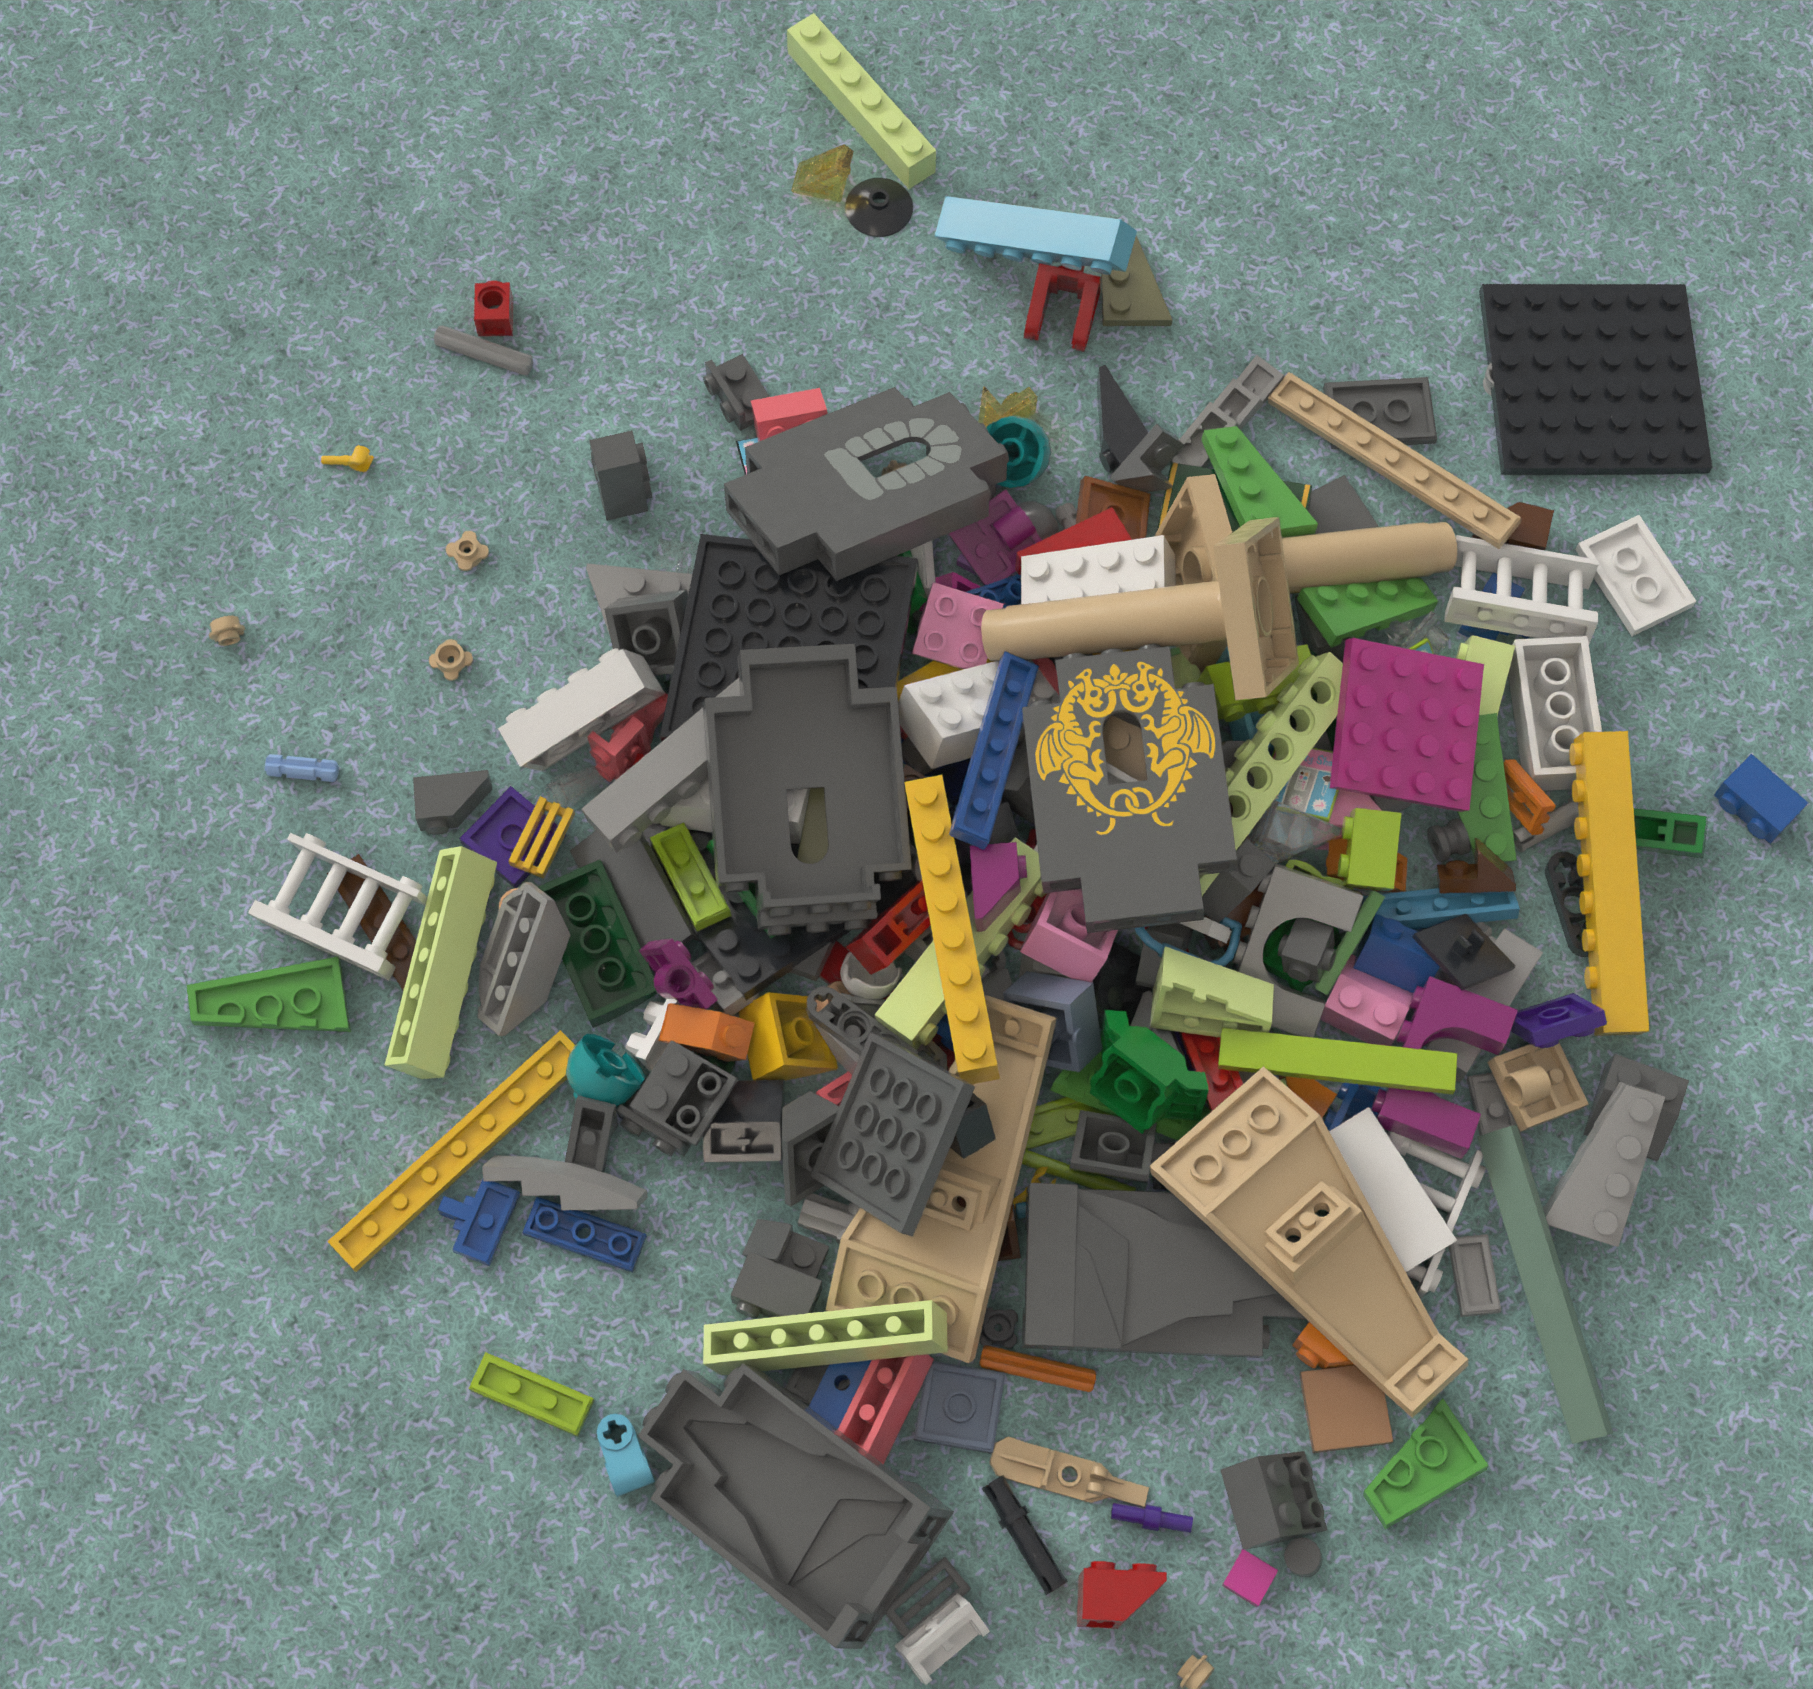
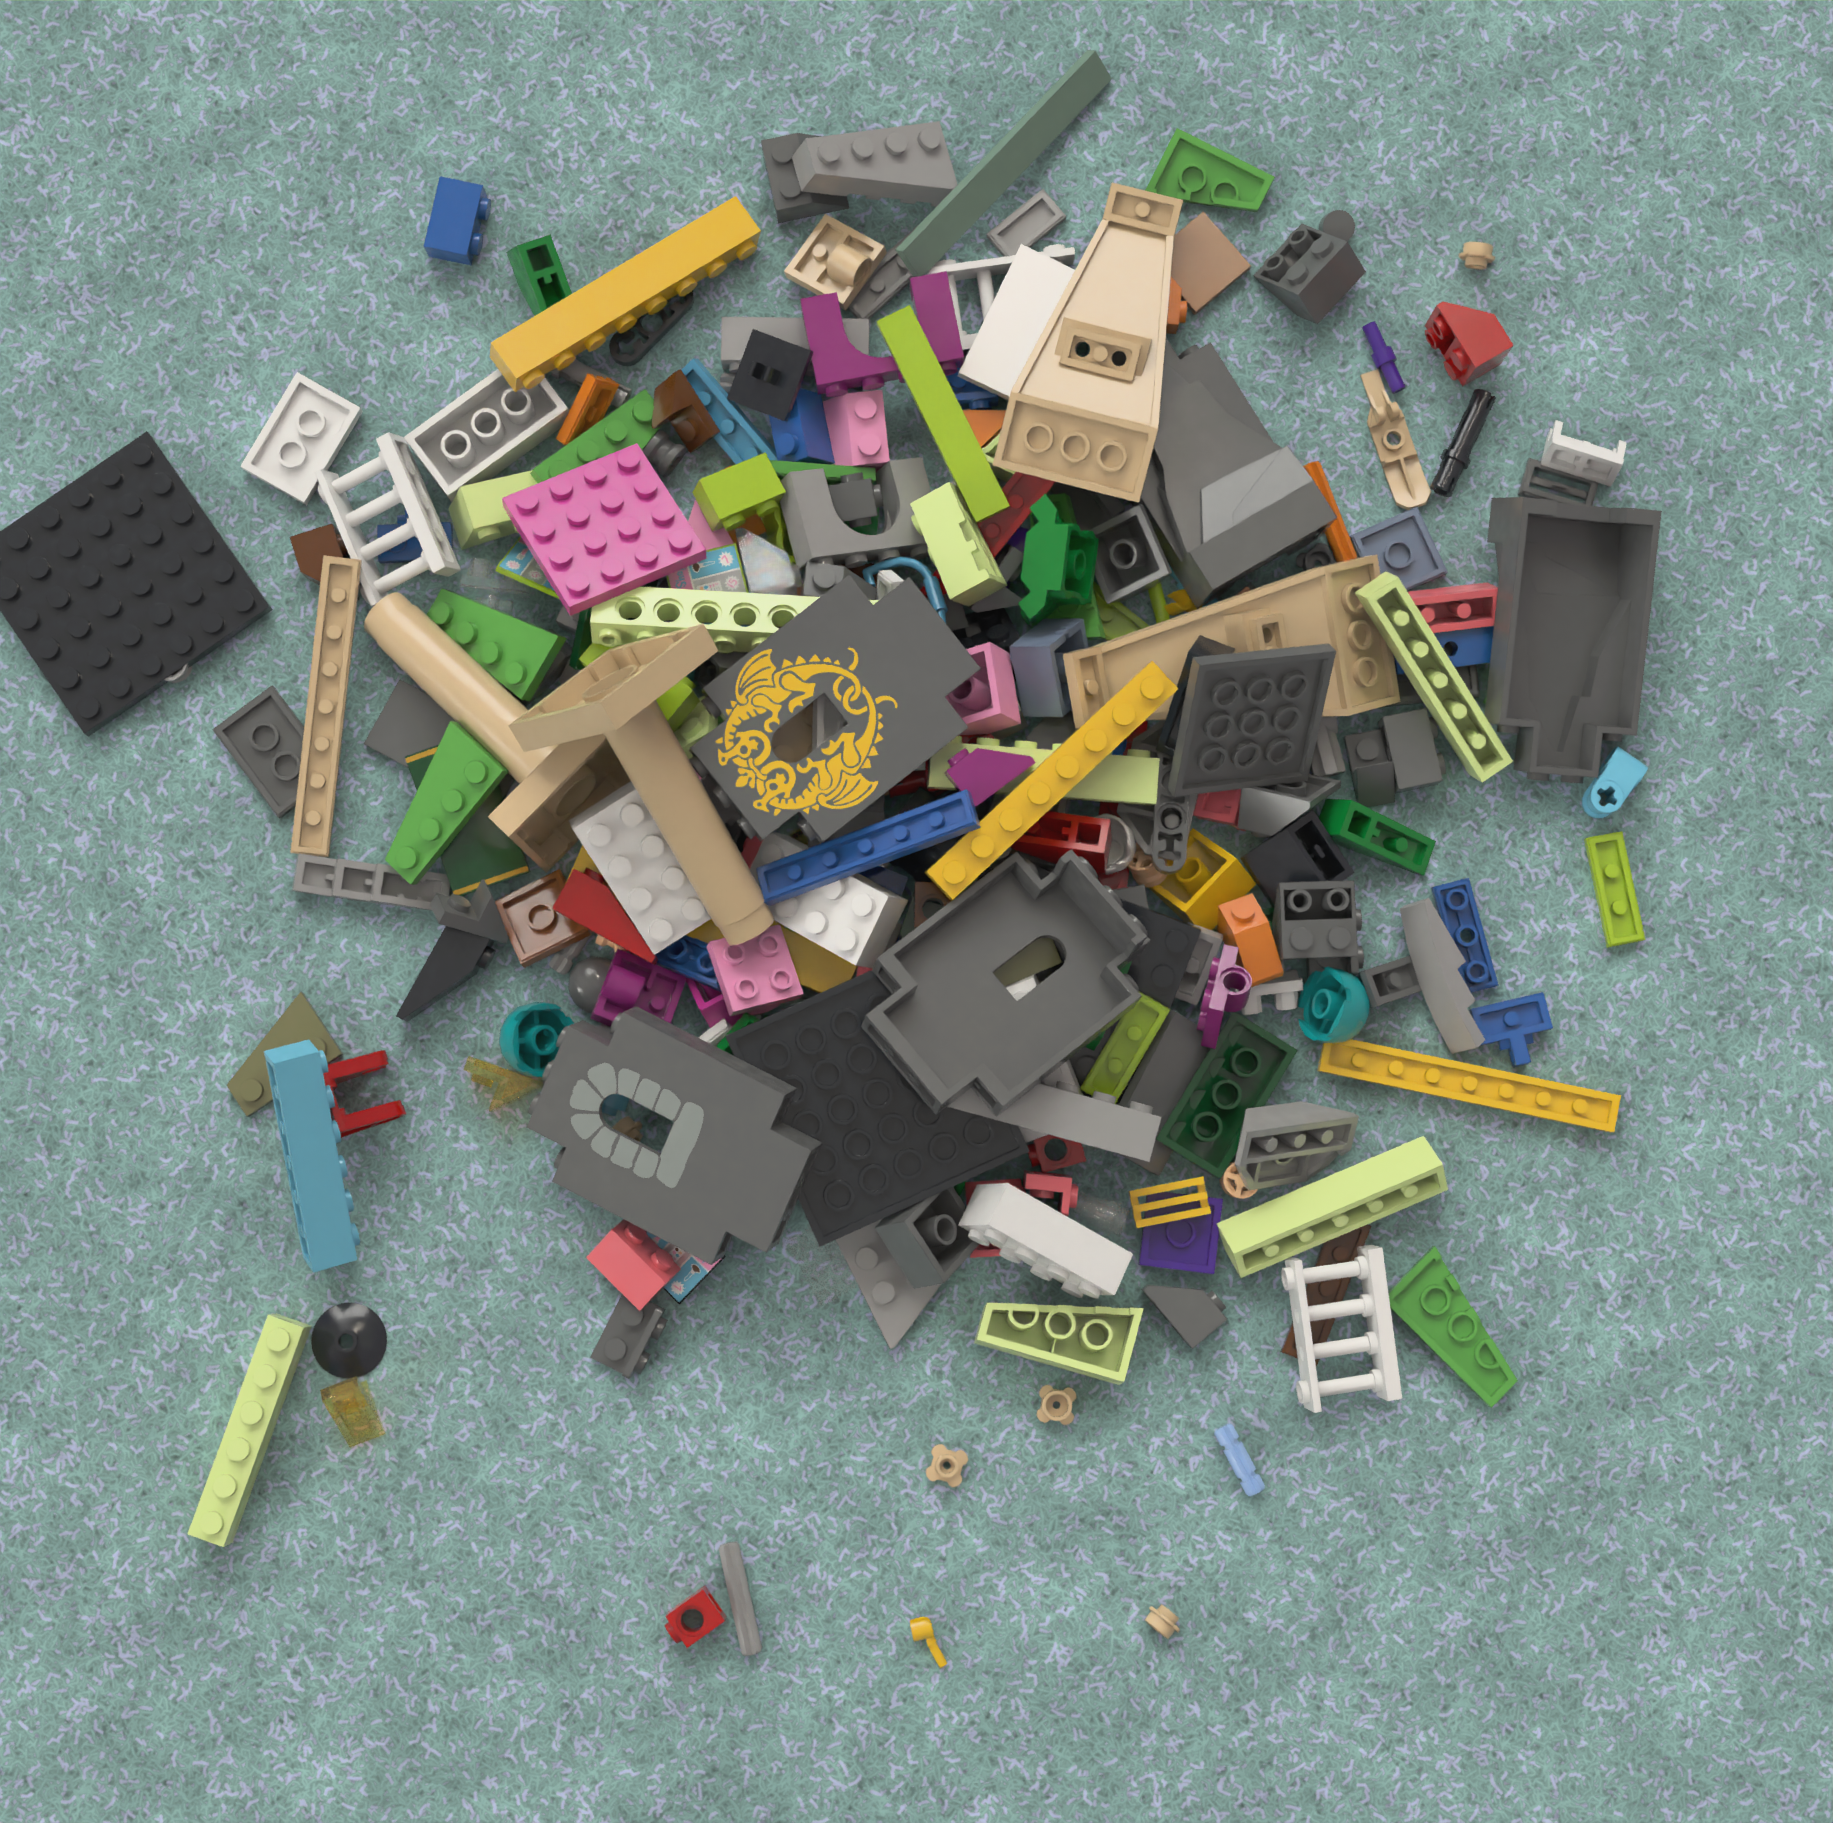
camera: 125 degrees left, 15 degrees up
(496, 687) = (1064, 1336): none -> yellowish green wedge
(621, 474) = (791, 1378): dark grey wedge -> none
(723, 1210) = (1376, 835): none -> green slope
(1249, 1578) = (1378, 258): dark pink tile -> none
(1557, 1019) = (774, 274): dark purple plate -> none

